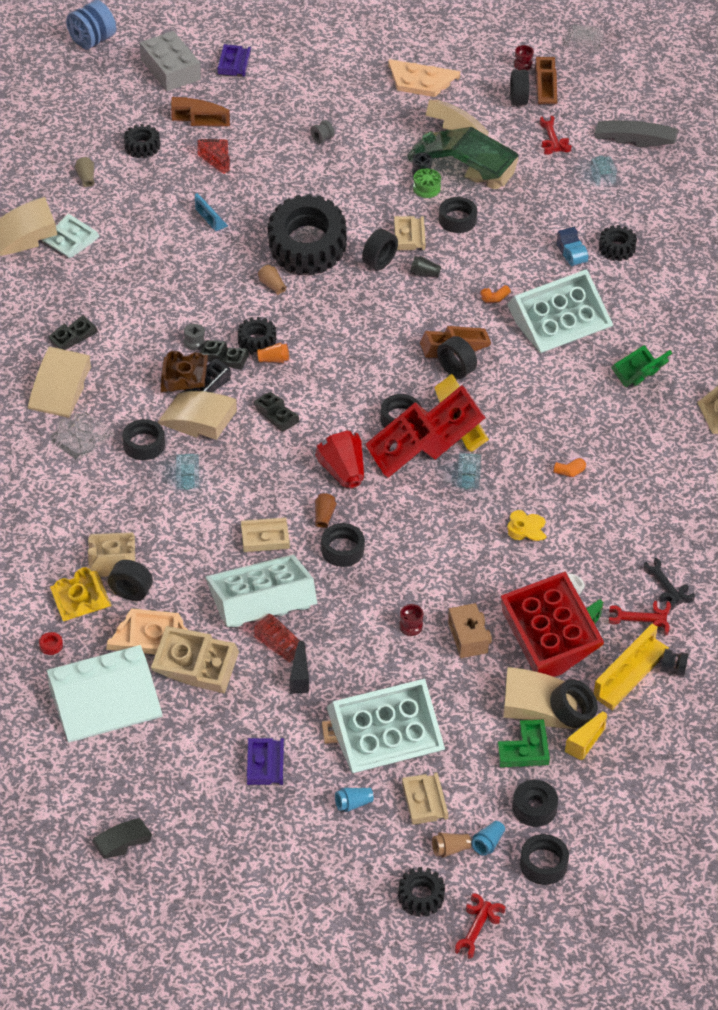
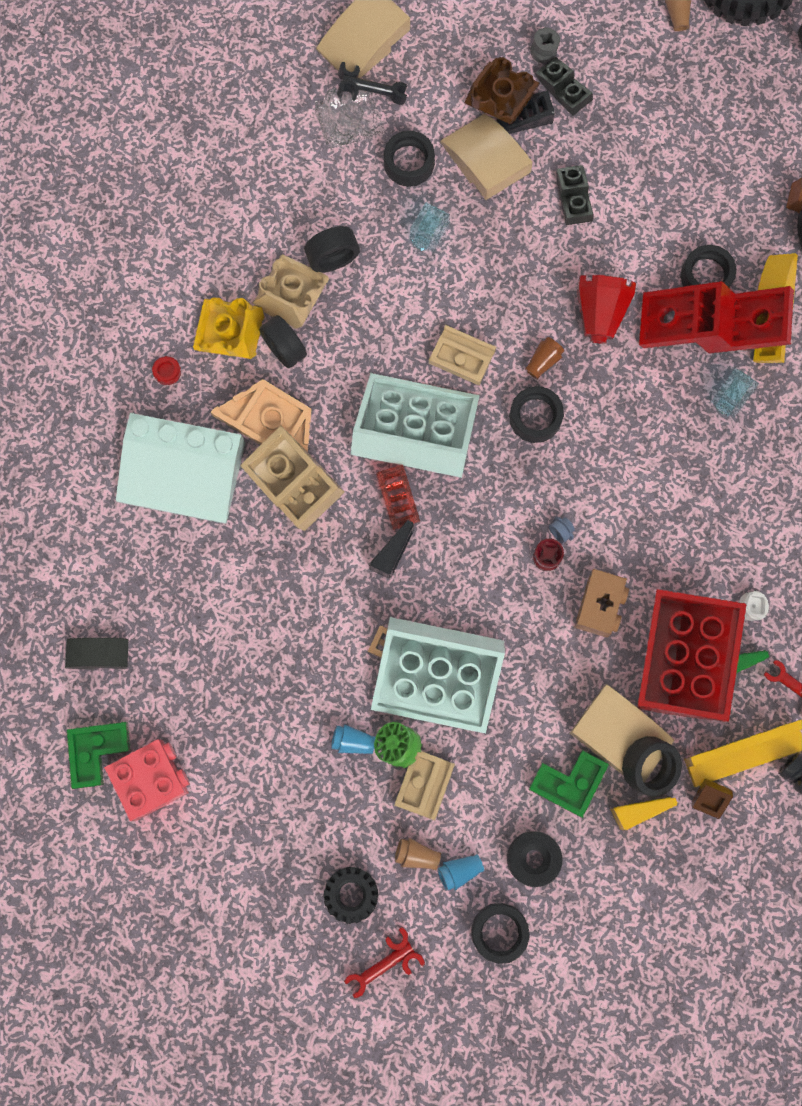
camera: 35 degrees right, 30 degrees up
(71, 411) = (352, 84): none -> black bar
(127, 510) = (331, 249): none -> black tyre
(158, 901) = (88, 745): none -> green plate
(218, 897) = (147, 779): none -> coral brick
(256, 327) = (614, 65): black tyre -> none
(265, 761) = (291, 643): dark purple plate -> none
(276, 353) = (620, 115): orange cone -> none
(381, 776) = (398, 744): none -> bright green wheel
(409, 598) = (562, 529): none -> sand blue plate
(526, 525) = (757, 499): yellow plate -> none
(628, 705) = (712, 798): none -> reddish brown plate

